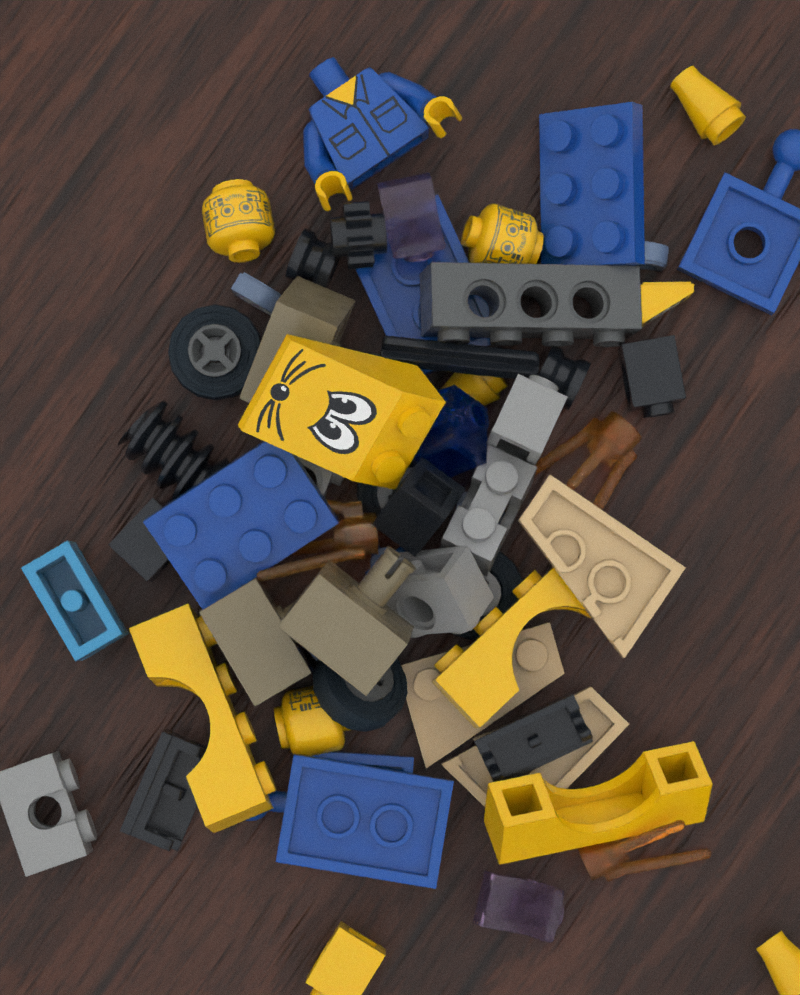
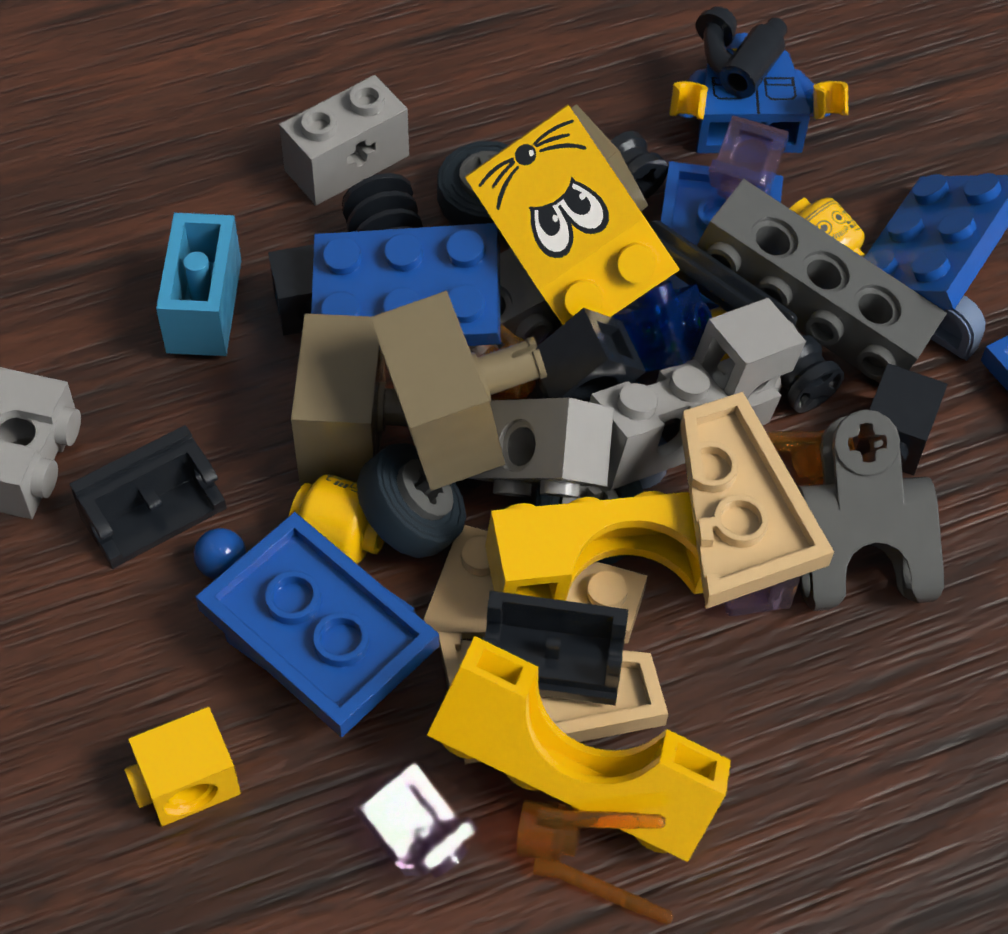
camera: 30 degrees right, 30 degrees down
(77, 384) = (345, 139): none -> light grey brick
(227, 779) = (215, 491): yellow arch -> none
(238, 220) = (593, 90): yellow head -> none
(356, 105) = (752, 60): none -> black plant
(358, 235) = (687, 146): black gear -> none
(661, 297) = (955, 362): yellow slope -> none
(674, 484) = (872, 505): none -> dark grey piece

